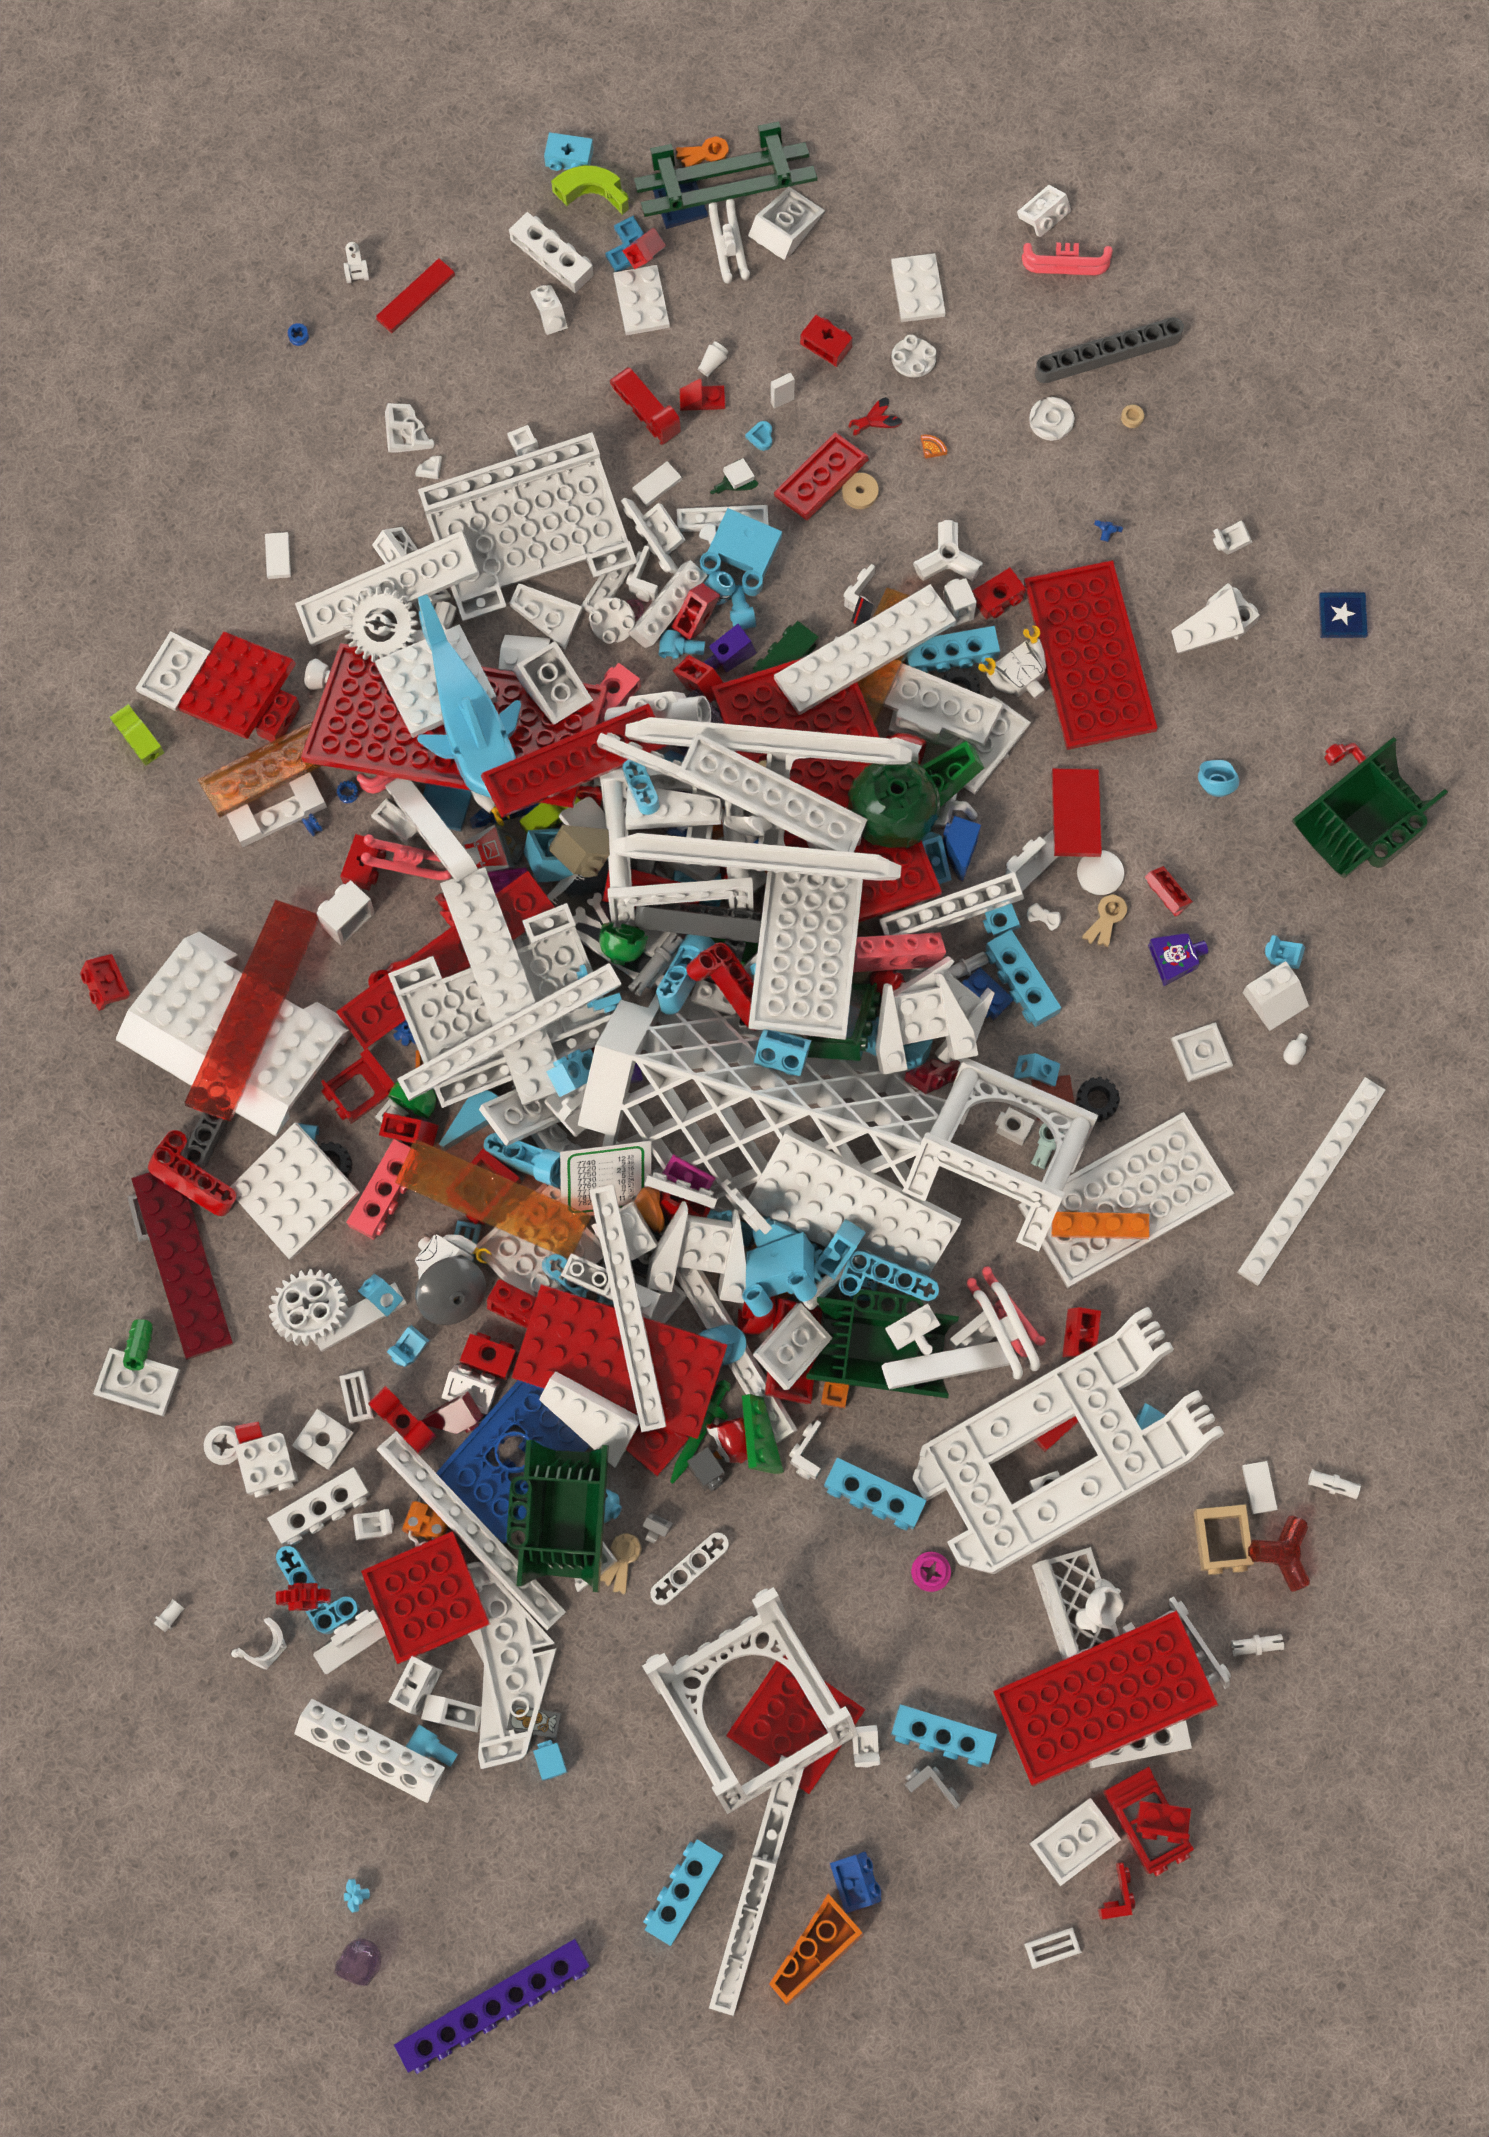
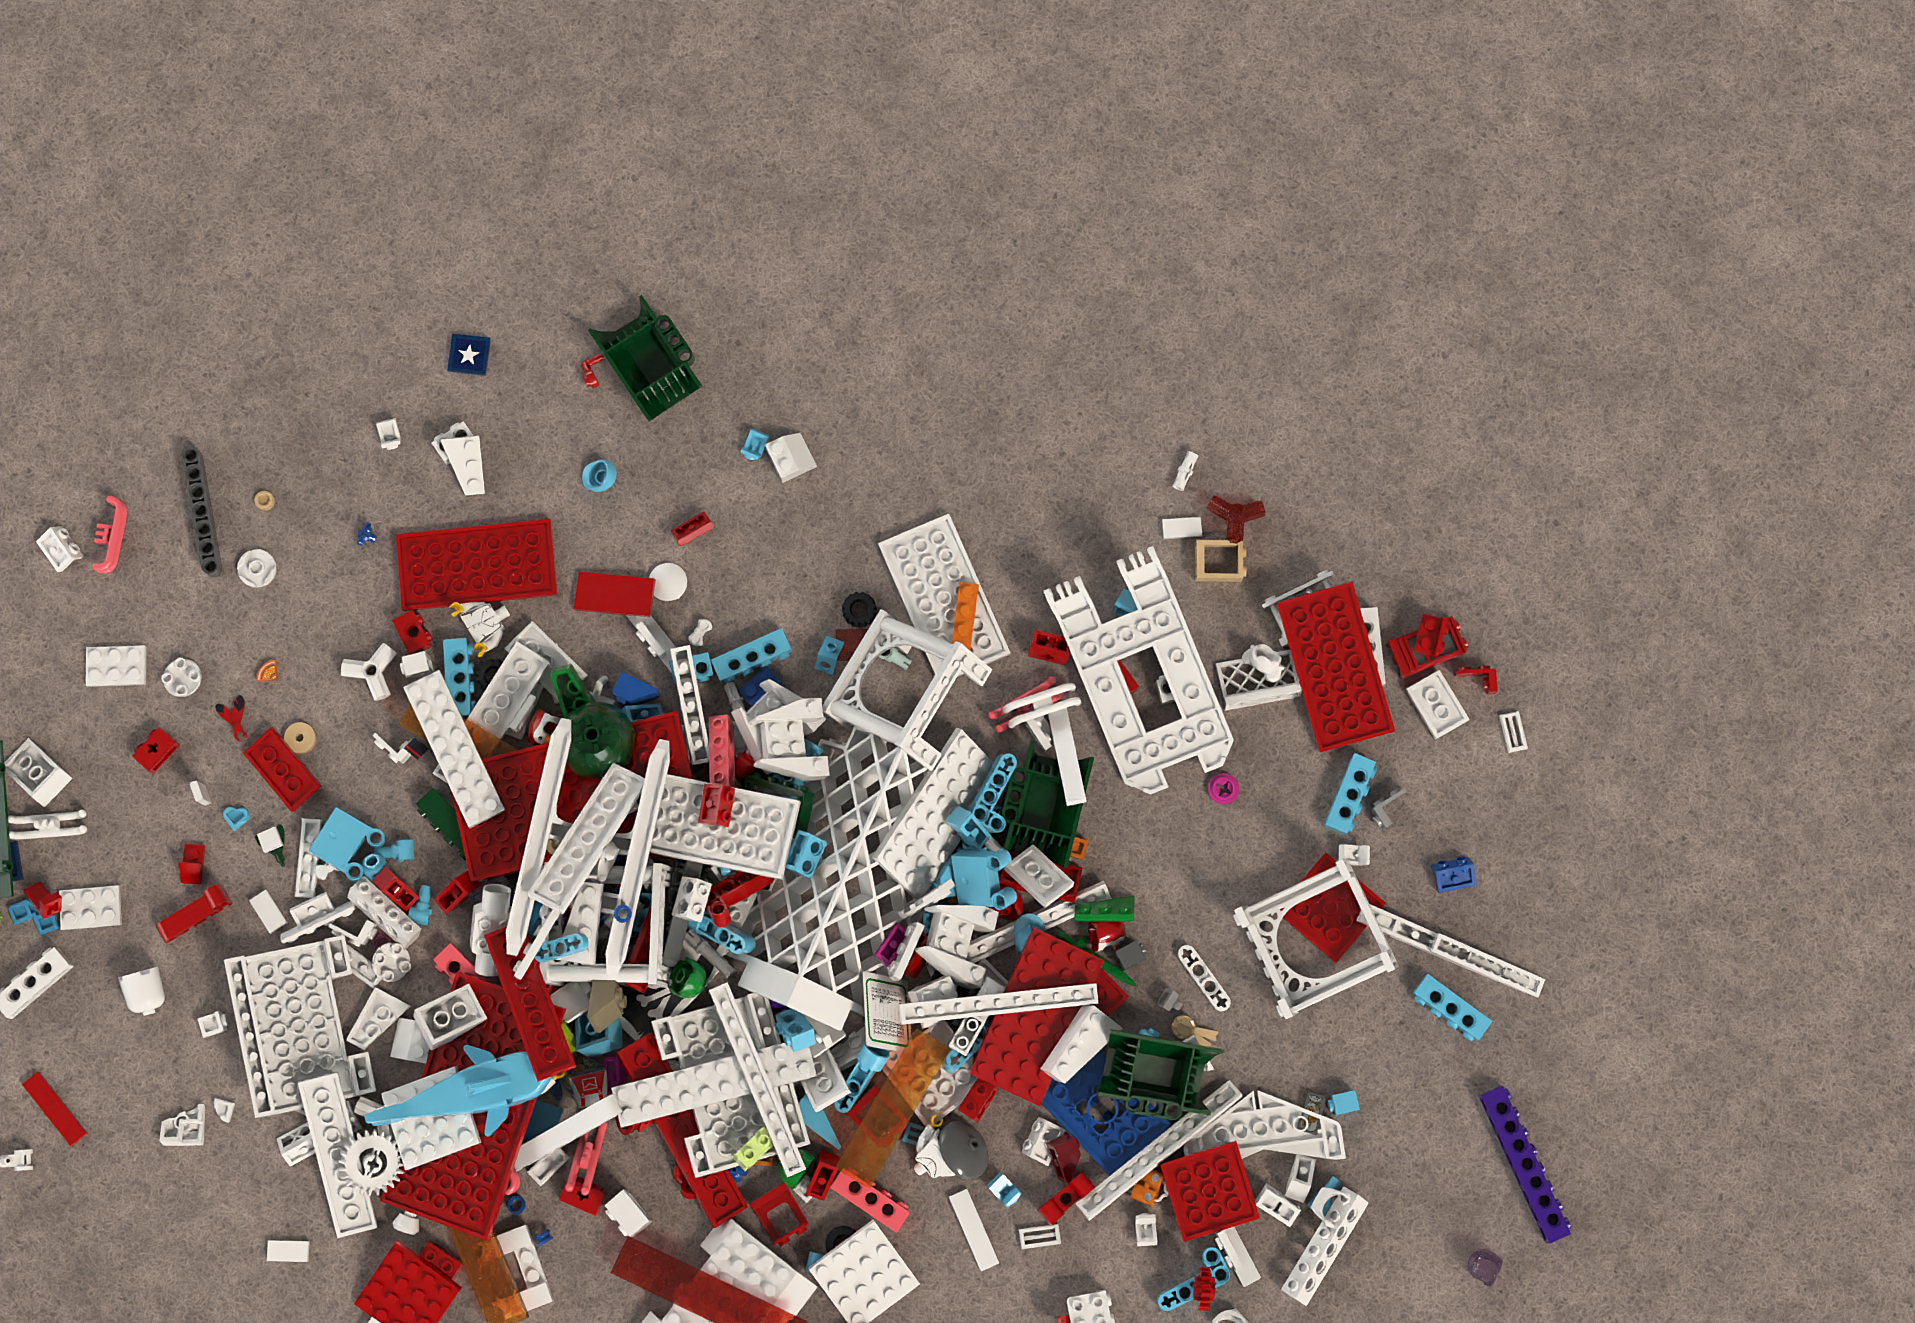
camera: 90 degrees left, 5 degrees up
(283, 1520) = (1136, 1304): white brick -> none
(298, 341) = (83, 1217): blue bush -> none
(305, 1288) = (980, 1268): white gear -> none
(319, 1424) = (1072, 1279): white piece -> none
(355, 1895) = (1433, 1266): medium azure plant -> none
(375, 1288) = (954, 1212): medium azure bracket -> none
(422, 1737) = (1323, 1195): none -> white helmet
(427, 1038) = (753, 1149): none -> yellowish green window
(499, 1366) = (1028, 1117): red brick -> none
(549, 308) = (86, 989): white bracket -> none
(551, 363) = (143, 991): none -> white cylinder
(608, 1003) = (739, 998): medium azure bracket -> none
(649, 1206) = (914, 979): orange hat -> none
(685, 837) = (625, 907): none -> blue axle
(713, 358) = (157, 850): white cone -> none
(715, 930) = (691, 899): none -> white brick
(731, 649) = (430, 856): dark purple torso -> none
(805, 1468) = (1133, 878): white bracket -> none
(816, 1950) = (1501, 907): orange wedge -> none
(829, 942) = (716, 805): none -> red bracket
(889, 1492) = (1171, 797): medium azure brick -> none
(913, 1328) = (1038, 777): white plate -> none
(932, 1075) = (829, 738): dark red bracket -> none
(1017, 1136) = (876, 670): white brick -> none
(1111, 910) = (701, 577): tan piece -> none
(1176, 956) = (747, 530): dark purple torso -> none
(1201, 1052) = (829, 522): white tile -> none
(1257, 1645) = (1302, 547): white pin -> none
(1295, 1050) = (836, 448): white cylinder -> none
(1311, 1181) = (943, 452): white plate -> none

